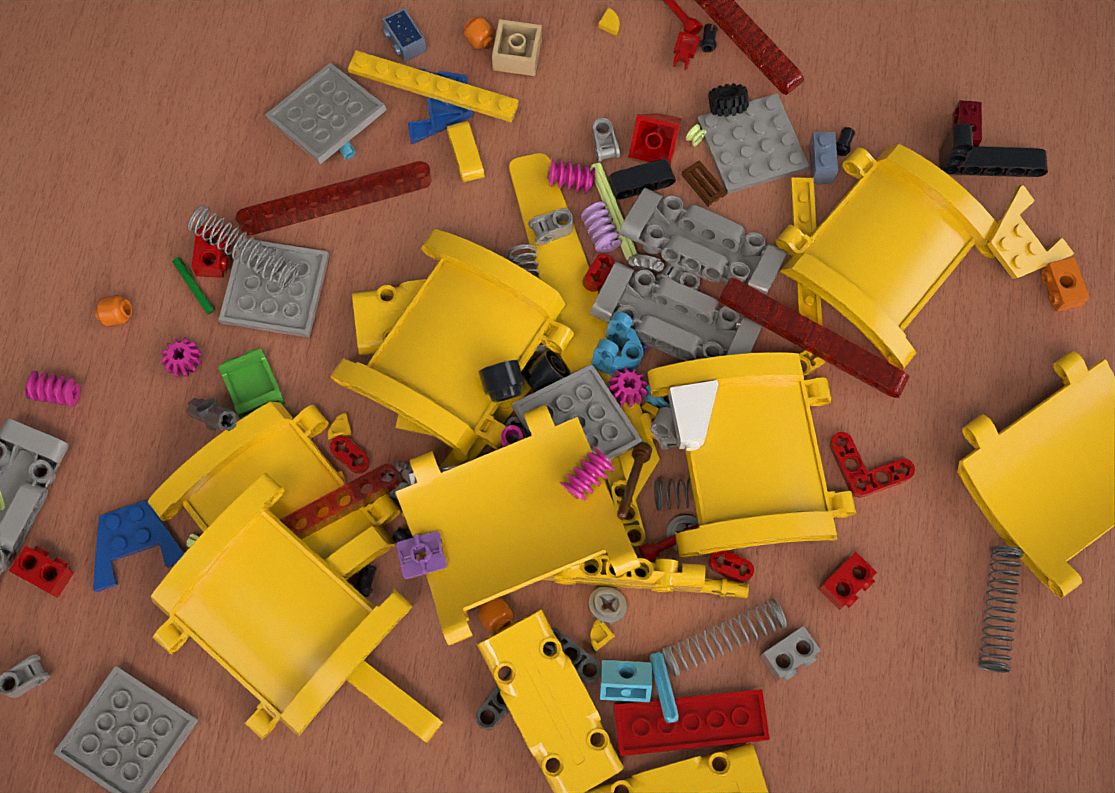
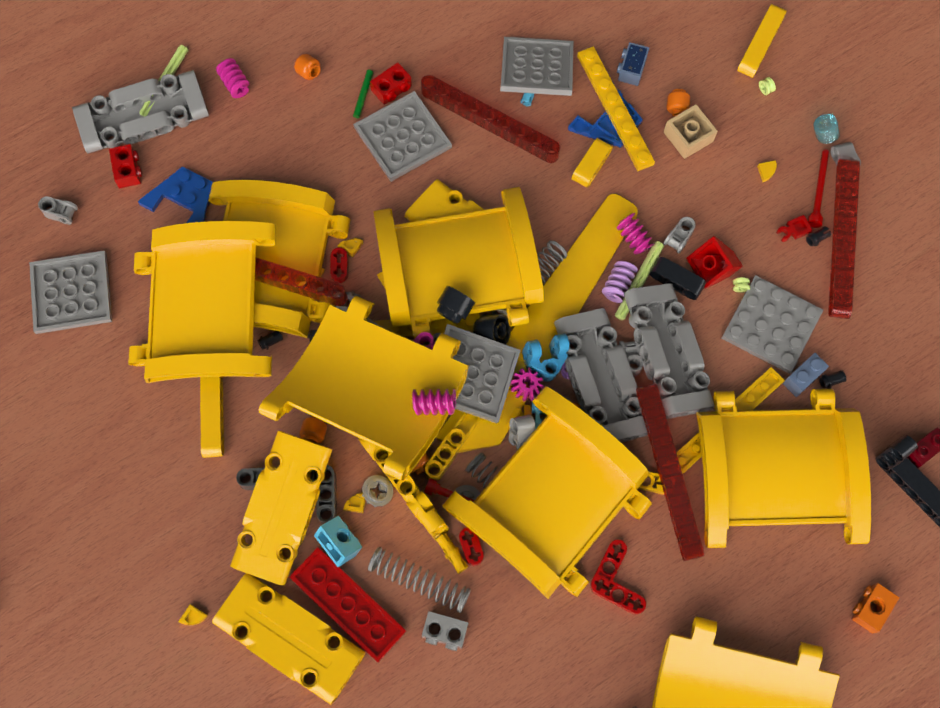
camera: 50 degrees right, 0 degrees up
(187, 350) = (312, 125): dark pink gear -> none
(203, 216) = (404, 101): light grey piece -> none
(211, 414) = (290, 169): dark grey piece -> none
(250, 382) = (333, 174): bright green panel -> none
(411, 547) = (301, 342): medium lavender piece -> none
(548, 228) = (587, 249): light grey piece -> none
(595, 270) = (588, 300): red beam -> none
(641, 454) = (490, 429): reddish brown piece -> none
(646, 263) = (621, 327): light grey gear -> none
(664, 687) = (353, 568): medium azure axle -> none
(691, 412) = (541, 434): white slope -> none
(697, 188) = (711, 332): reddish brown tile -> none
(728, 100) = (784, 283): black tyre -> none
(845, 578) = (526, 623): red brick -> none
(1017, 245) = (869, 552): yellow wing -> none

